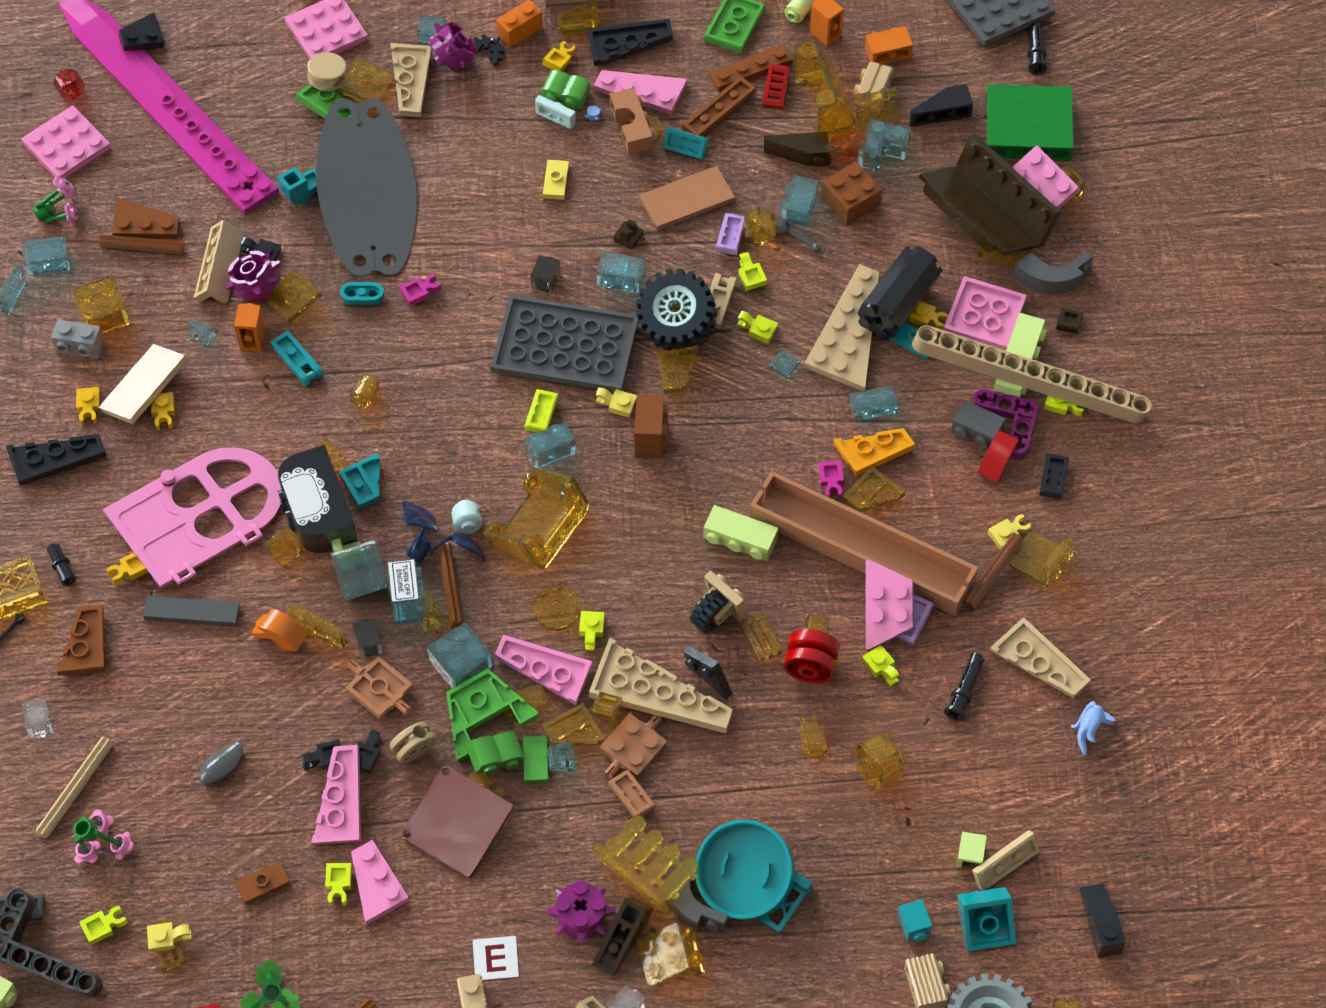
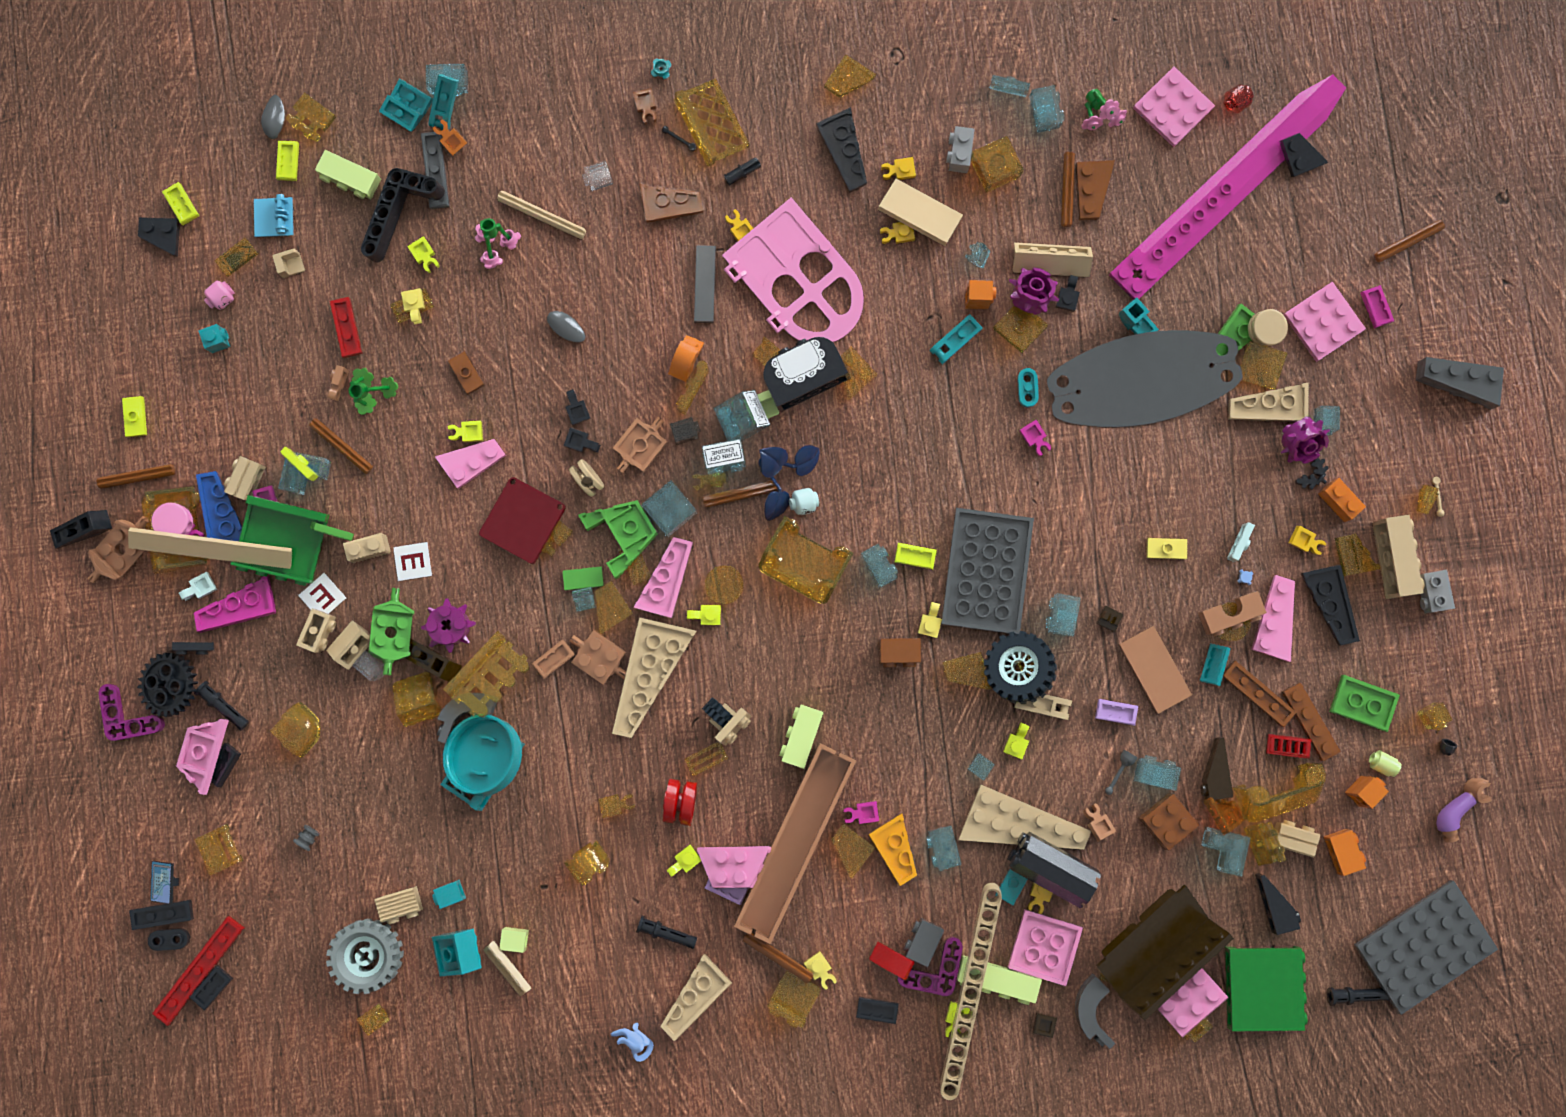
camera: 85 degrees right, 25 degrees up
(340, 807) = (530, 426): bright pink wing -> none
(363, 481) = (835, 410): teal wing -> none
(364, 391) = (925, 401): clear yellow brick -> none
(495, 753) = (581, 545): bright green brick -> none
(545, 274) = (1059, 548): clear smoke brick -> none
(564, 976) = (394, 616): none -> bright green plate
(566, 89) = (1267, 550): bright green brick -> none
(608, 708) = (625, 634): clear yellow panel -> none
(708, 670) = (663, 716): black wing -> none
(751, 274) = (1073, 733): neon yellow plate -> none
(759, 225) = (1123, 738): clear yellow brick -> none
(817, 623) = (705, 806): clear yellow slope -> none
(852, 254) = (1100, 825): none -> nougat plate
(1102, 921) = (460, 1047): black slope -> none

